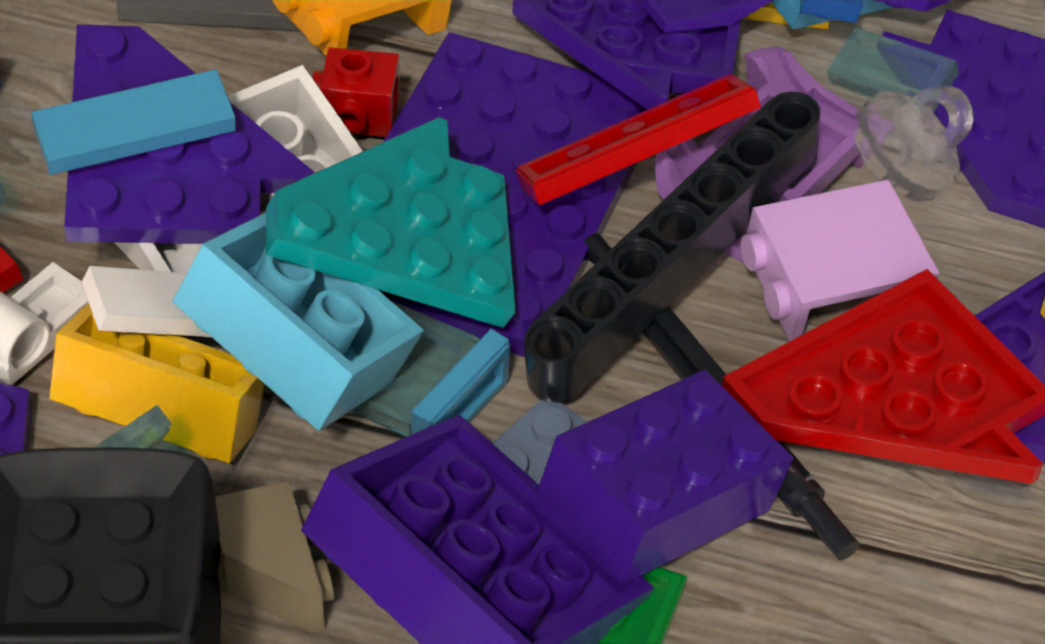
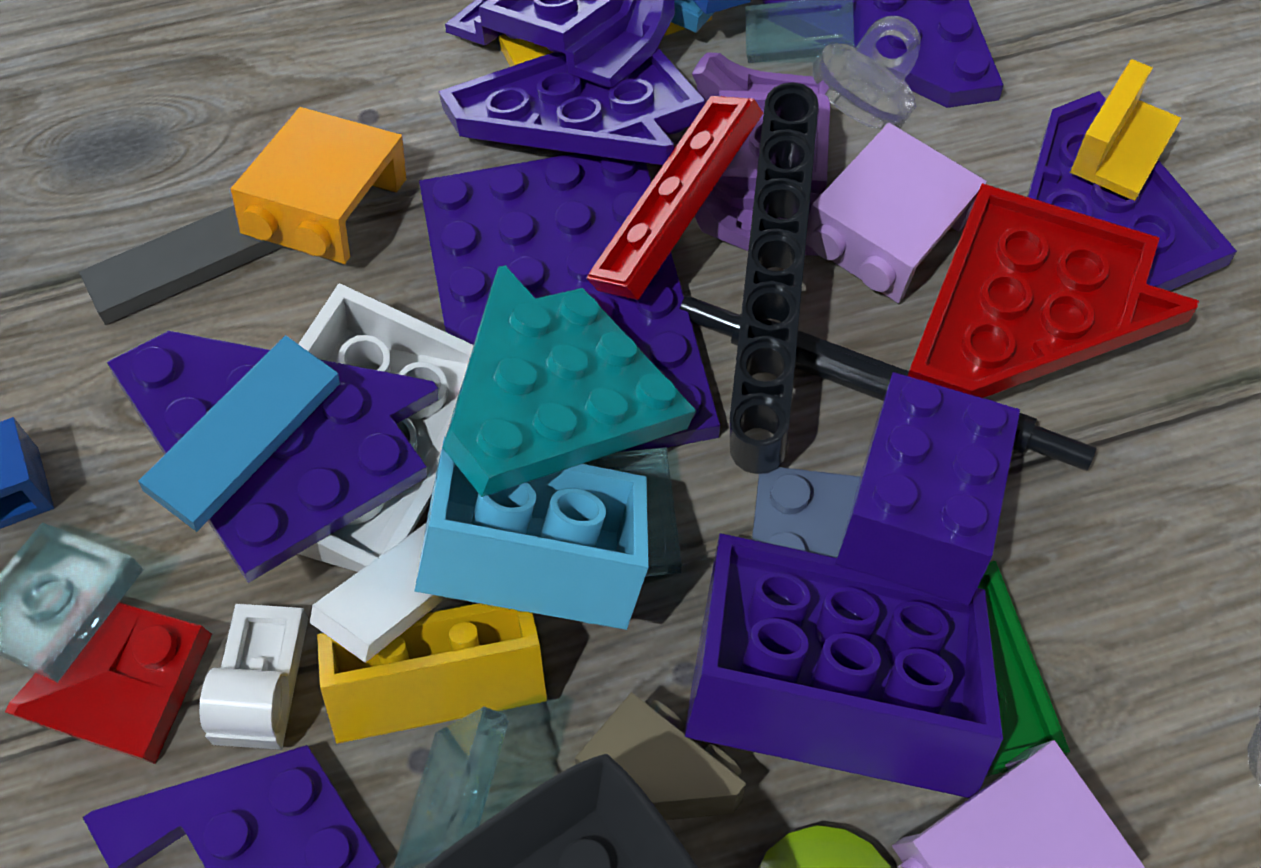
camera: 30 degrees left, 10 degrees up
(361, 89) = (393, 272): red brick -> none
(467, 385) = (696, 511): dark azure tile -> none

